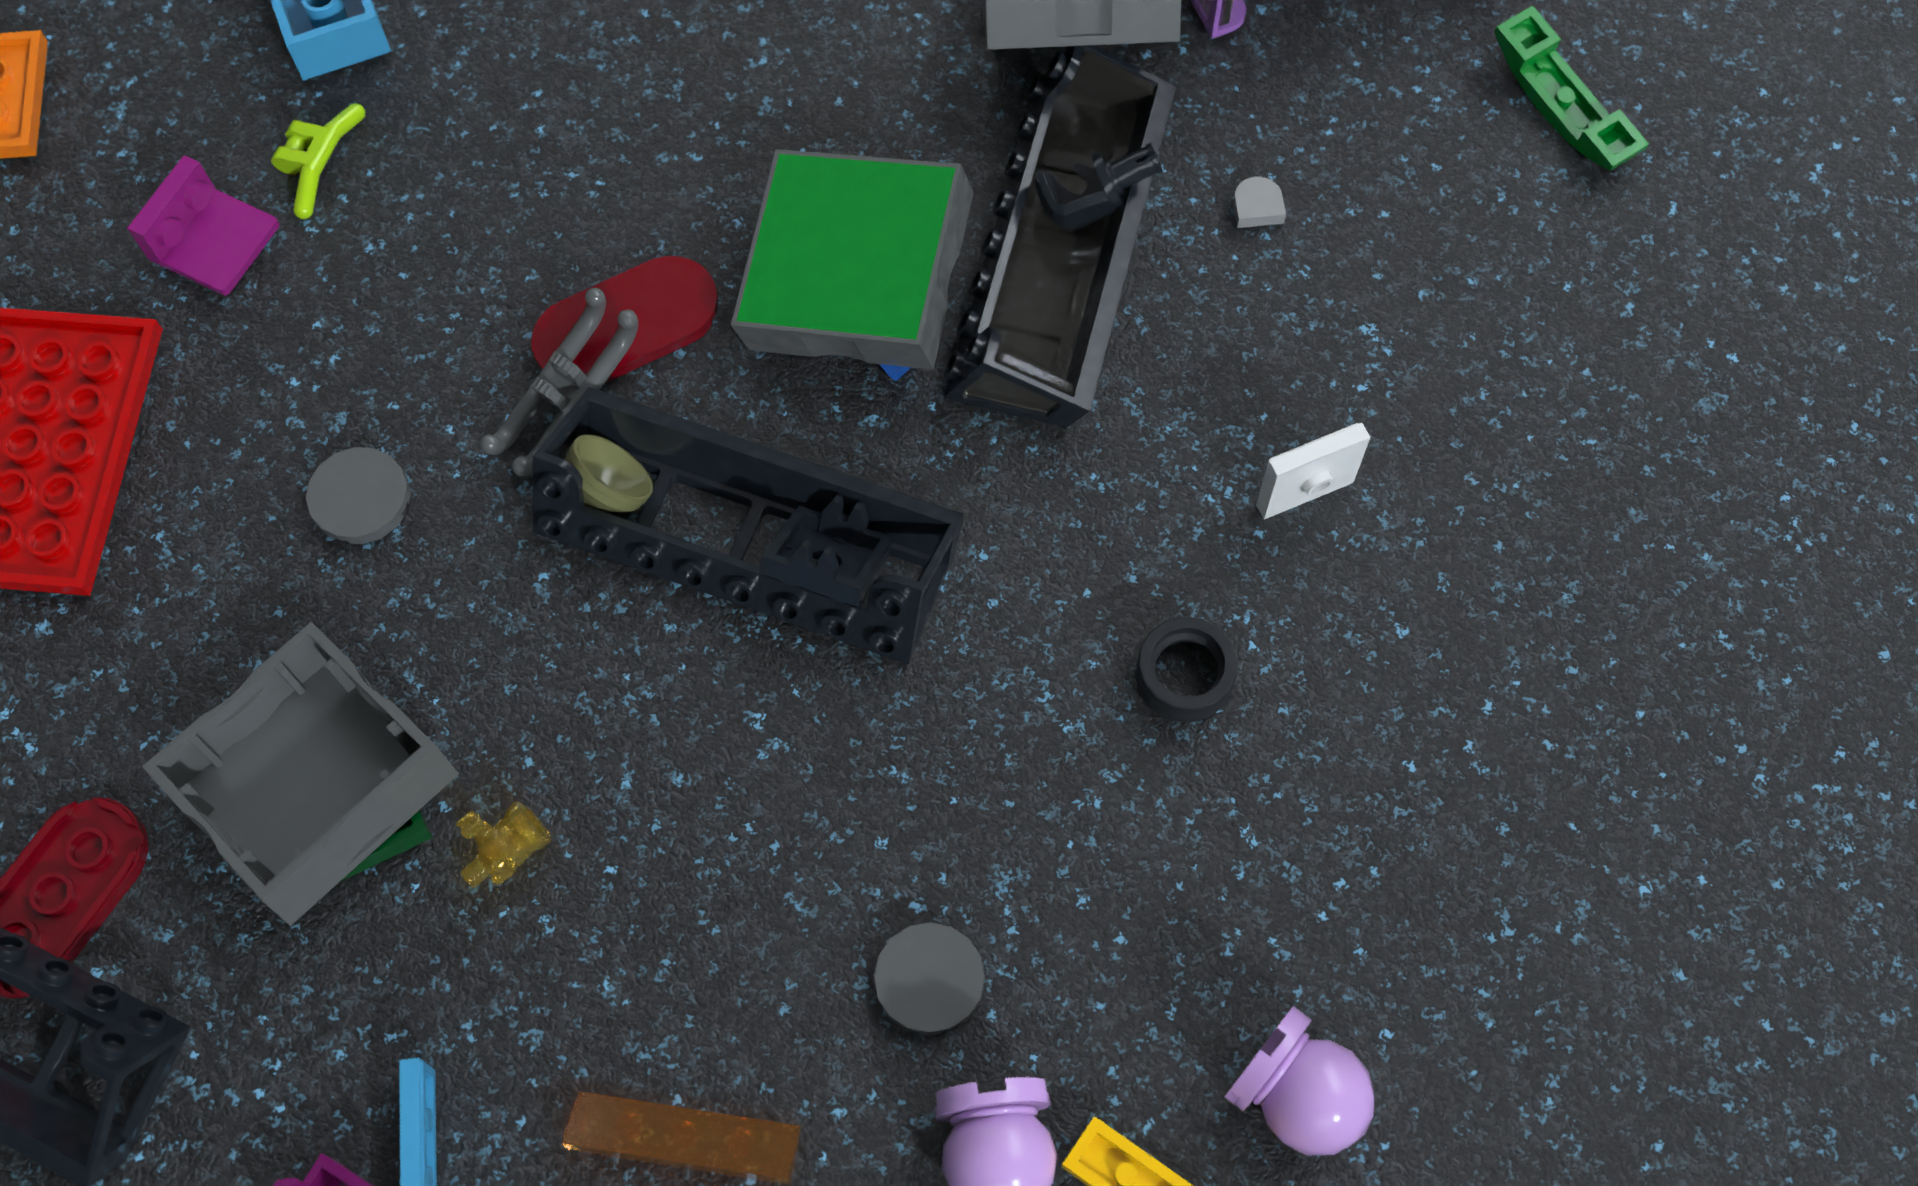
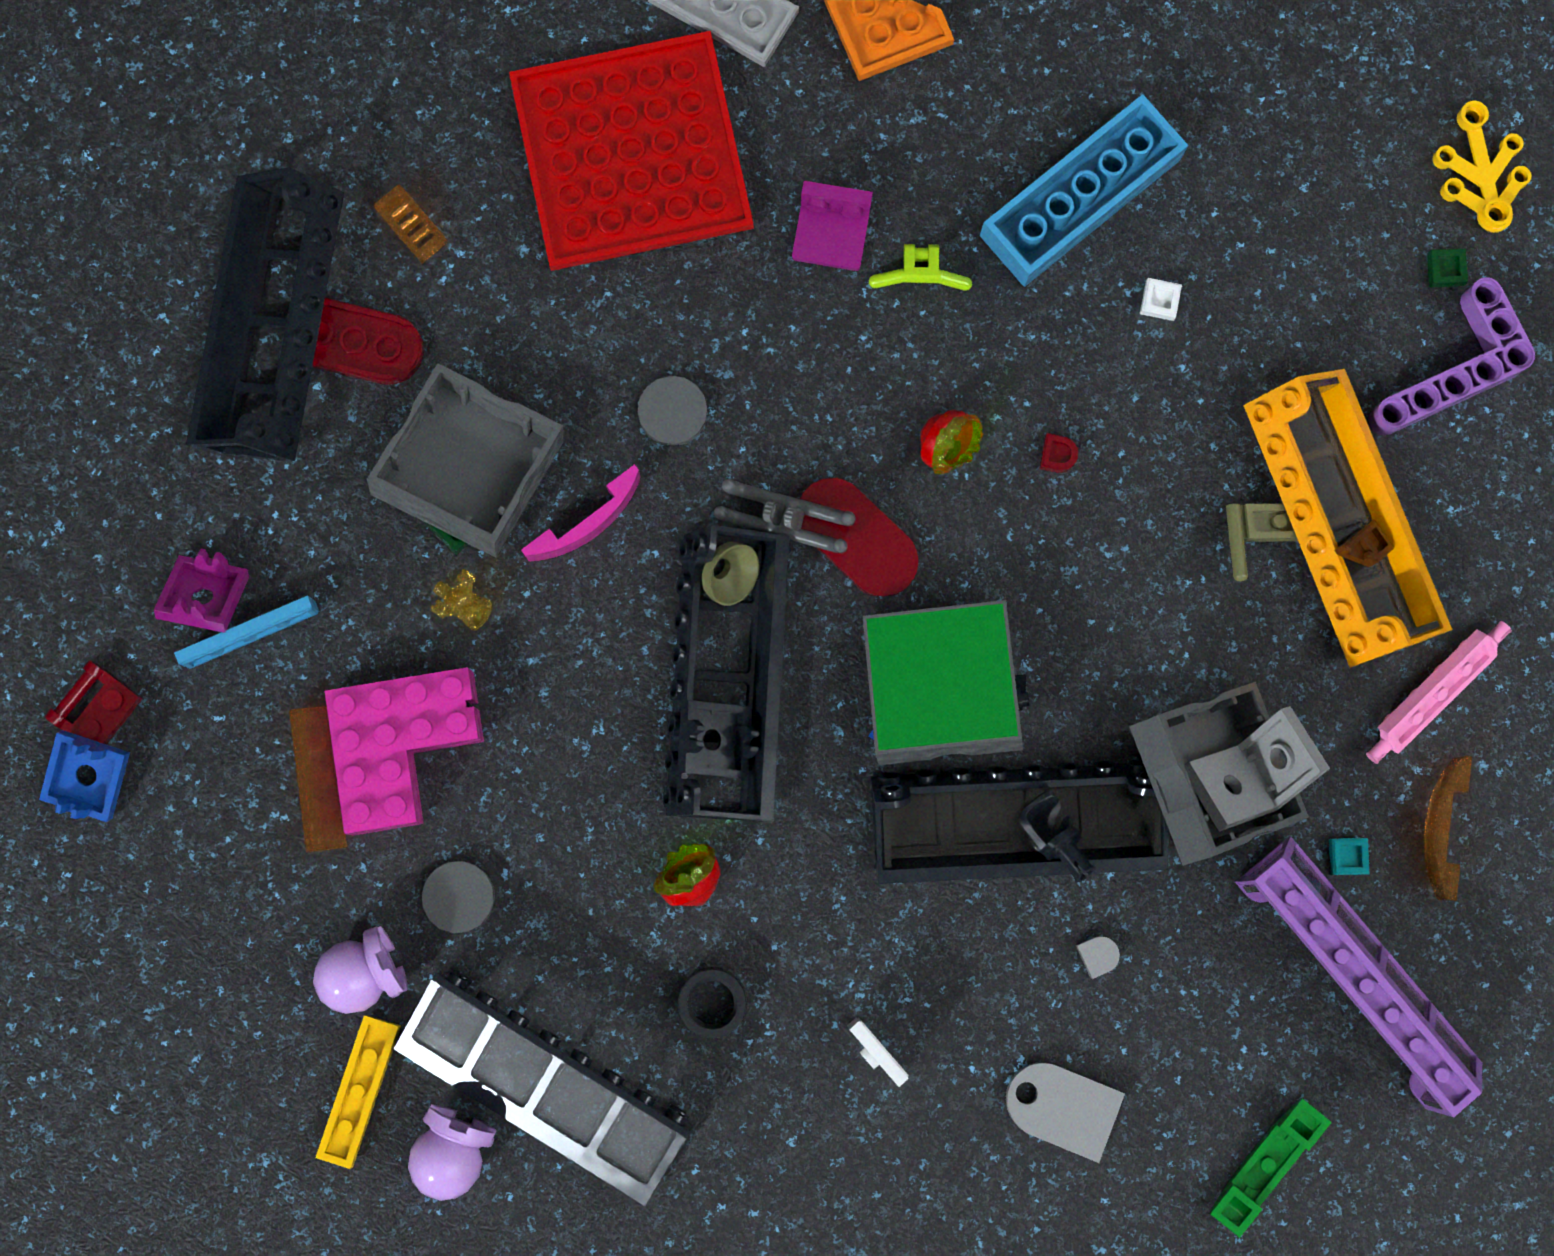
camera: 70 degrees right, 15 degrees up
(473, 695) = (548, 546): none -> dark pink slope
(543, 174) = (950, 440): none -> clear neon green hair
(615, 74) = (1058, 453): none -> dark red tile
(645, 1014) = (380, 729): none -> dark pink piece
(1001, 644) = (688, 875): none -> clear neon green hair
(1237, 923) = (543, 1086): none -> window
(1443, 291) = (1066, 1109): none -> light grey tile

